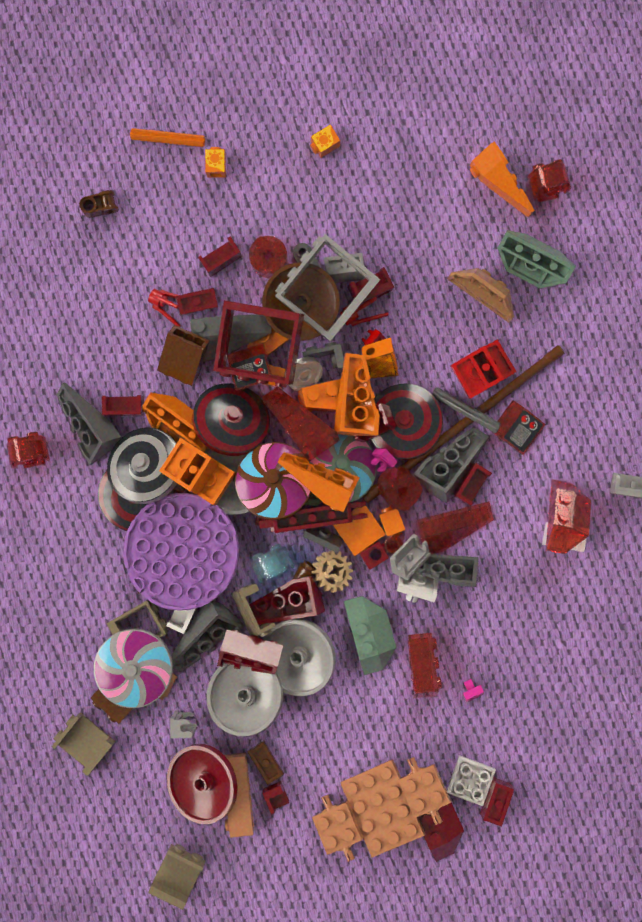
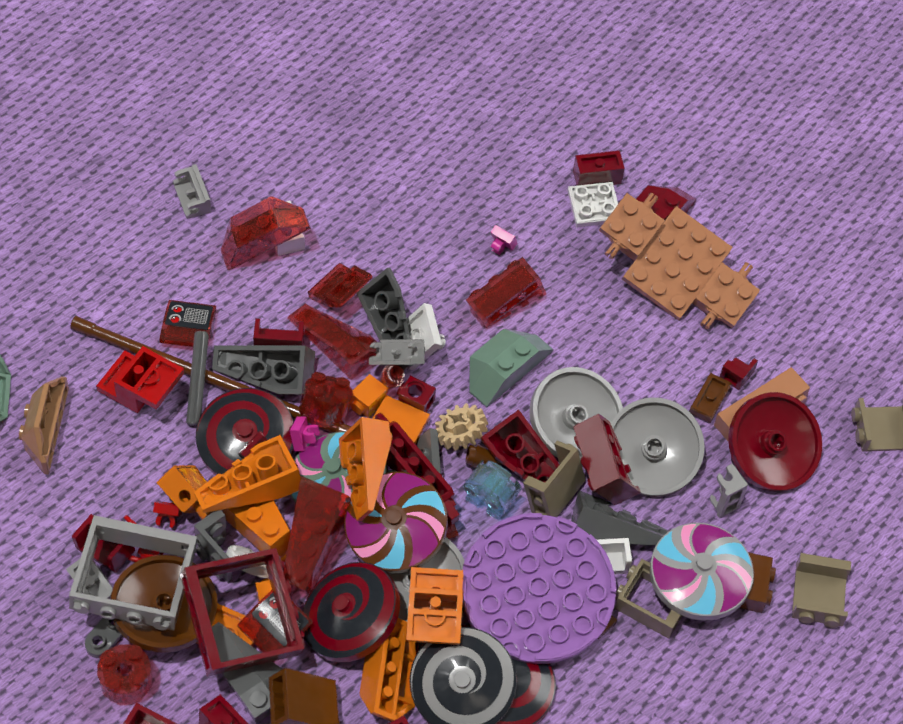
camera: 125 degrees left, 30 degrees down
(492, 550) = (339, 285): none -> clear red slope

